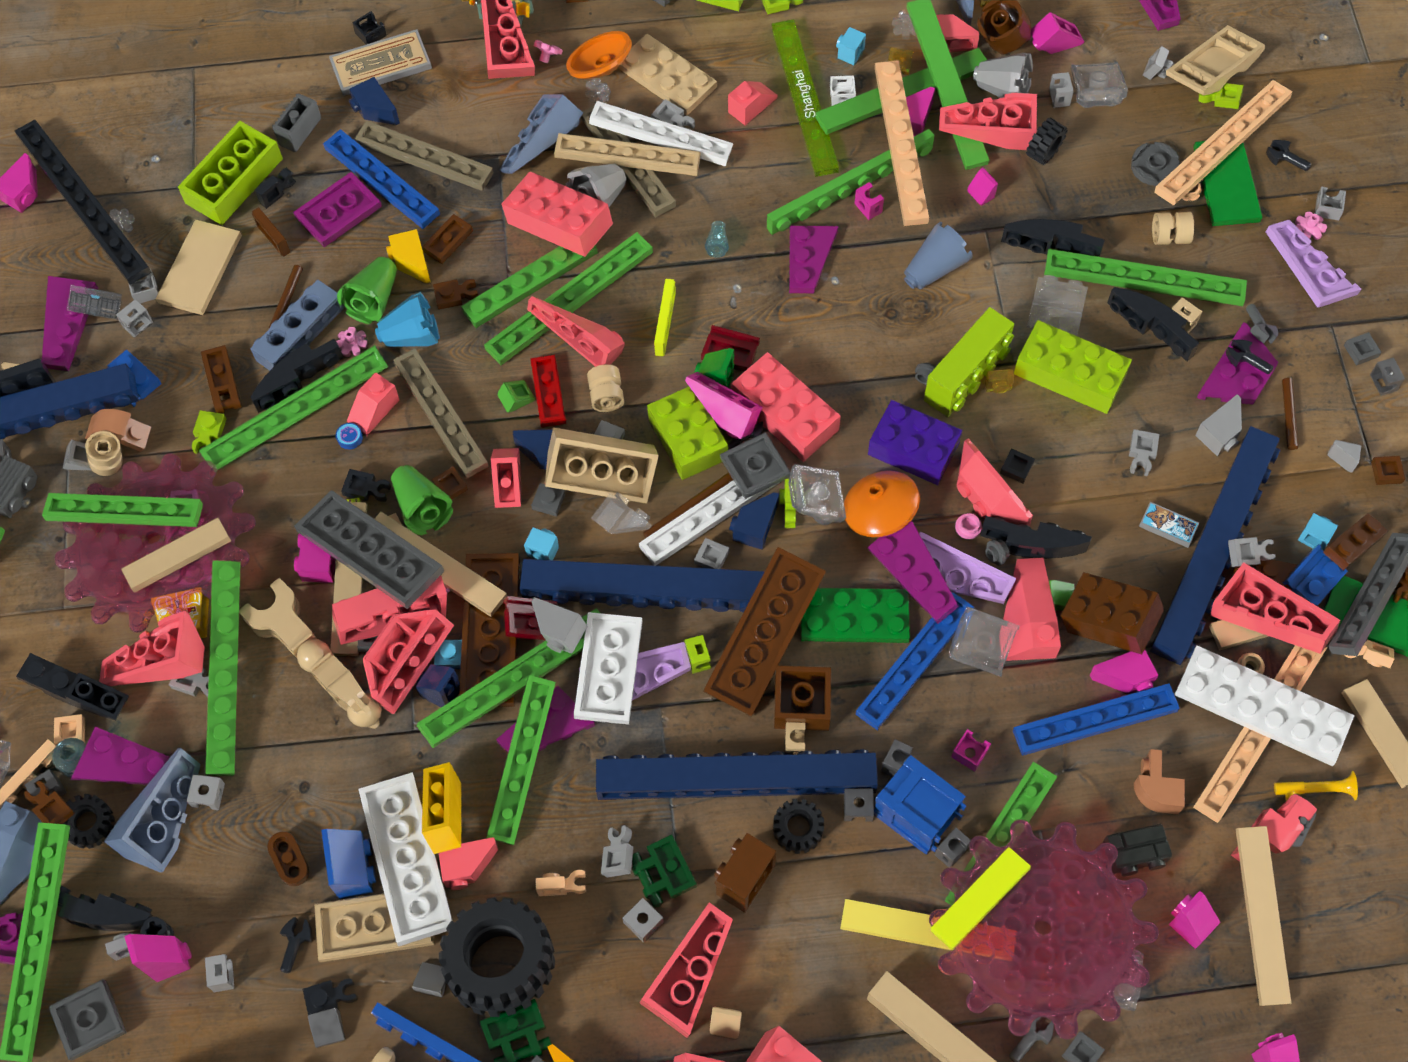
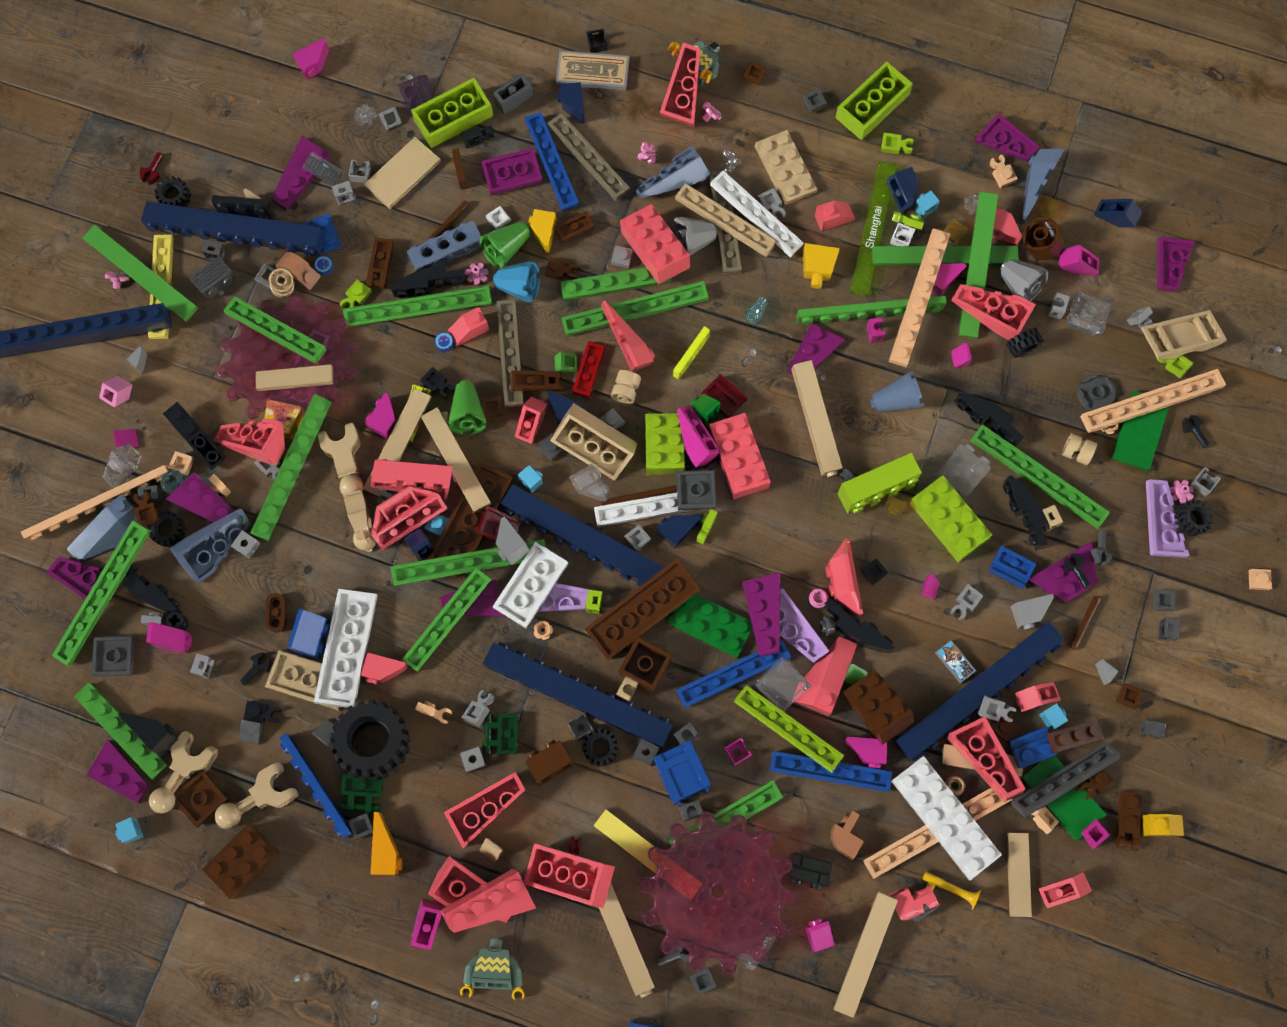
camera: 25 degrees right, 10 degrees up
(83, 202) = (346, 91): black plate -> none
(135, 733) = (218, 486): none -> light nougat plate
(148, 412) = (324, 265): none -> tile
(152, 212) = (390, 118): none -> light grey slope
(167, 174) = (411, 93): none -> clear purple plate
(346, 267) = (498, 218): none -> white tile
(369, 549) = (415, 433): dark grey plate -> none
(441, 808) = (381, 628): yellow brick -> none
(489, 428) = (535, 381): none -> reddish brown plate
(494, 123) = (647, 153): none -> bright pink plant
(522, 248) = (622, 256): none -> light grey plate
(599, 55) = (743, 134): orange dish -> none
(645, 713) = (542, 625): none -> light nougat plate
(754, 805) = (581, 719): none -> flat silver piece
(762, 157) = (819, 263): none -> yellow torso
(816, 38) = (903, 188): none -> dark blue slope
(817, 494) = (726, 529): clear slope -> none
(830, 963) = (575, 845): none -> dark red bush
(846, 998) = (569, 875): none -> coral brick
(847, 67) = (913, 220): none -> lime plate
(855, 324) = (816, 419): none -> tan brick
(881, 503) = (767, 563): orange dish -> none
(914, 442) = (812, 522): dark purple brick -> none
(980, 898) = (687, 854): neon yellow tile -> none
(1019, 691) = (789, 728): none -> lime plate
(1091, 454) = (930, 587): none -> dark pink slope
(1172, 389) = (1012, 567): none -> blue plate
(1285, 519) = (1037, 696): none -> coral slope
(1341, 245) = (1202, 516): none -> black tyre

